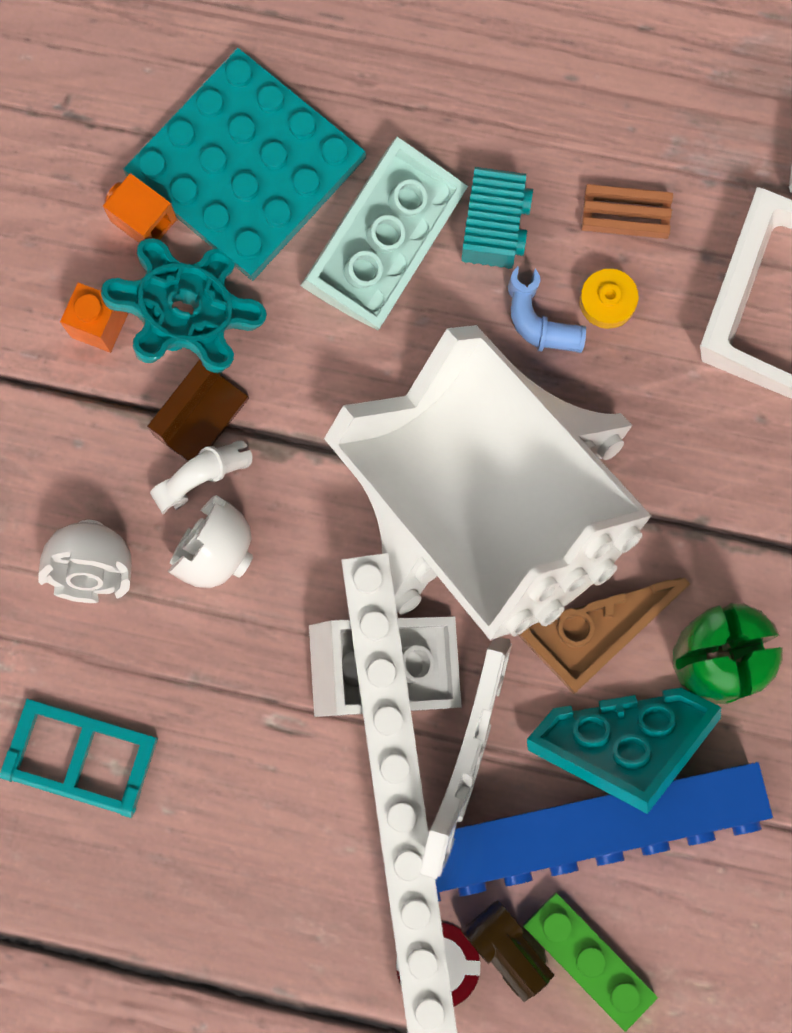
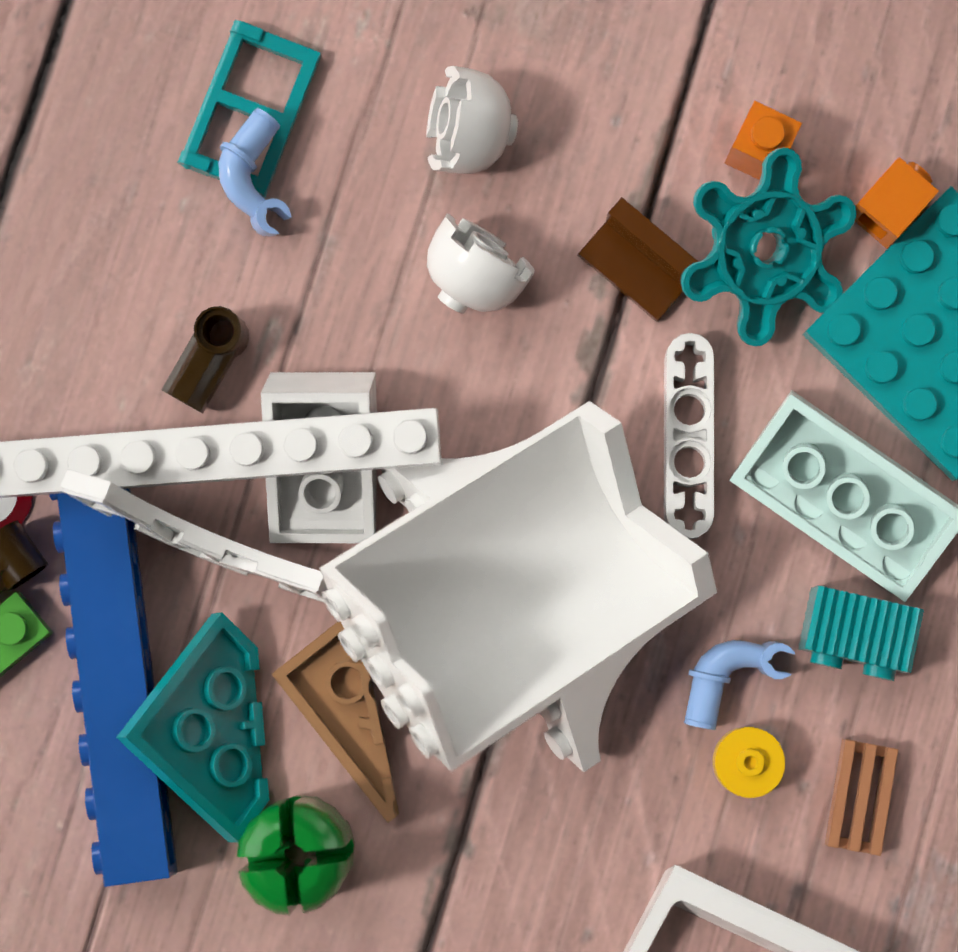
camera: 90 degrees right, 5 degrees up
(130, 759) = (238, 163): none -> light blue piece
(208, 465) = (570, 266): white piece -> none
(311, 776) = (203, 364): none -> dark brown piece
(344, 356) = (695, 436): none -> white beam

